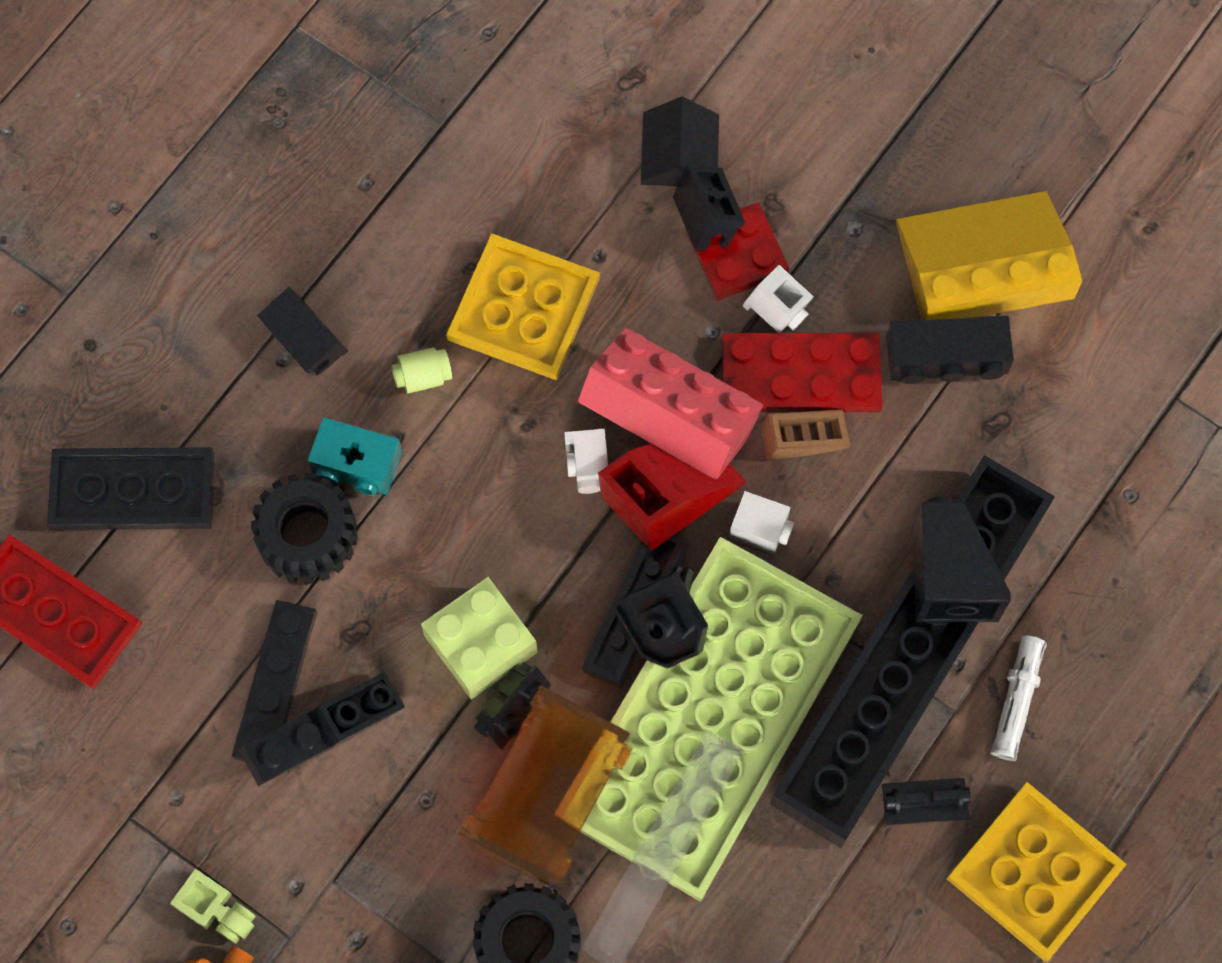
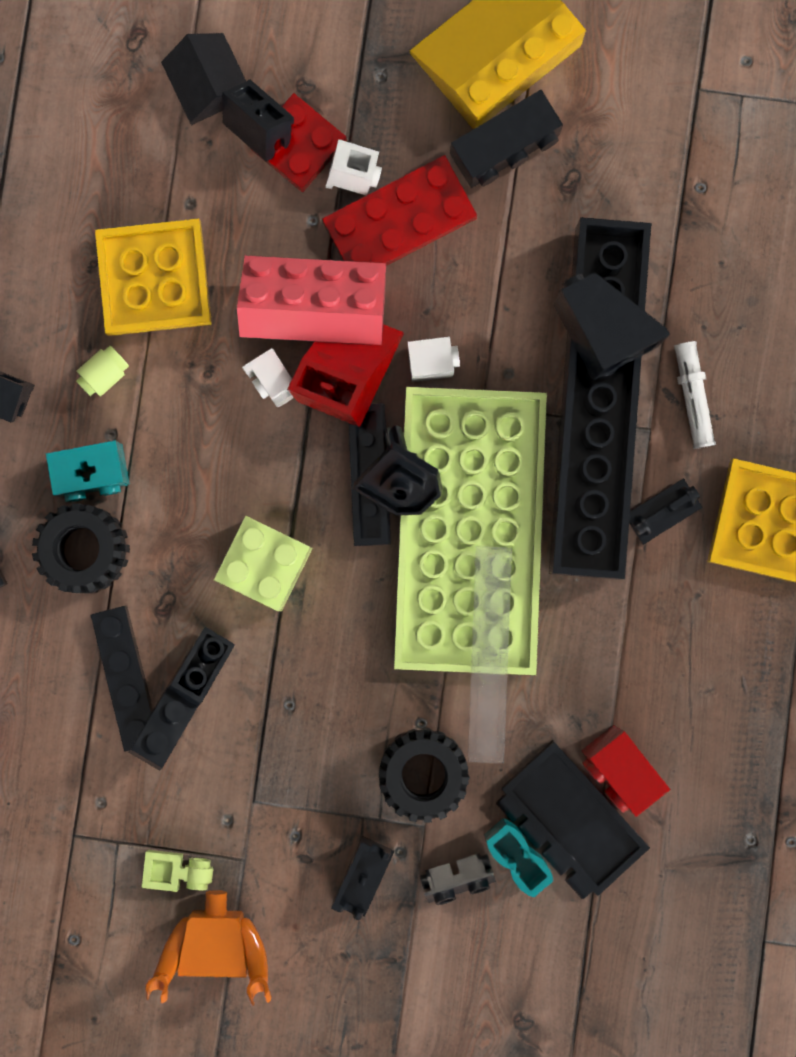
camera: 25 degrees left, 15 degrees up
(504, 719) = (319, 584): black hinge -> none
(546, 788) = (379, 659): clear orange windscreen -> none
(789, 448) = (413, 291): medium nougat slope -> none

